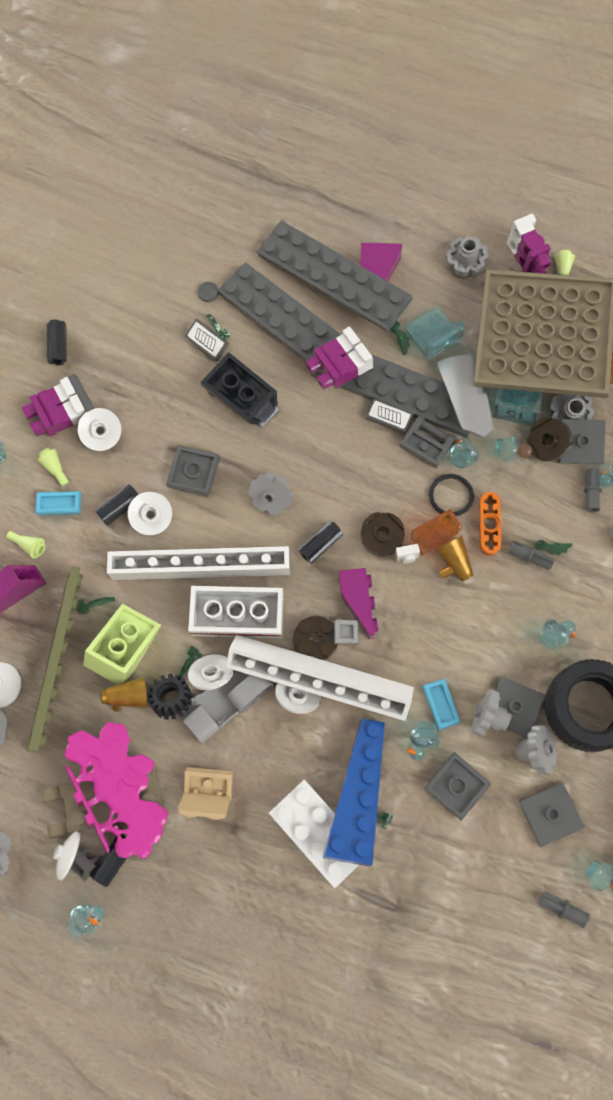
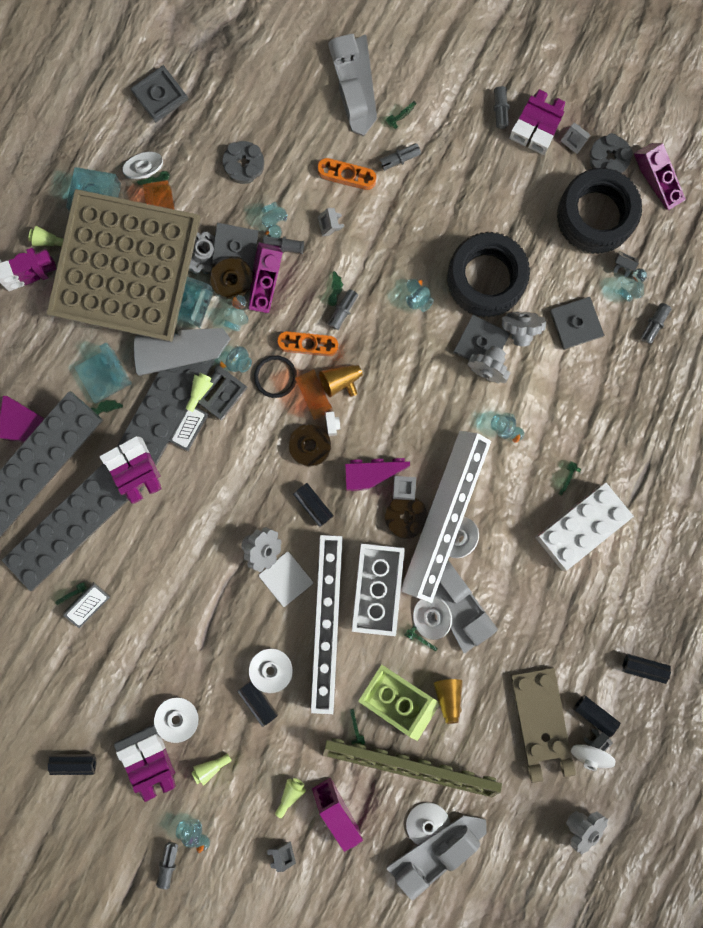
camera: 90 degrees left, 10 degrees up
(58, 503) = (249, 764): medium azure tile -> none
(85, 919) = (647, 742): clear light blue animal -> none
(118, 783) = (531, 709): dark pink plant -> none
(164, 686) = (442, 663): black tyre -> none
(166, 916) = (646, 668): none -> black axle
(193, 471) = (228, 626): dark grey plate -> none
(206, 793) = (545, 627): tan bracket -> none
(208, 291) = (29, 601): dark grey piece -> none
(242, 391) = (148, 572): black slope -> none
(243, 523) = (286, 579): none -> white sticker
(354, 823) = (571, 491): blue wing -> none
(431, 419) = (200, 386): none -> yellowish green cone
(441, 704) = (474, 407): medium azure tile -> none
(457, 786) = (548, 401): dark grey plate -> none
(466, 256) = (22, 332): light grey plant -> none
(554, 472) = (264, 275): none -> magenta slope

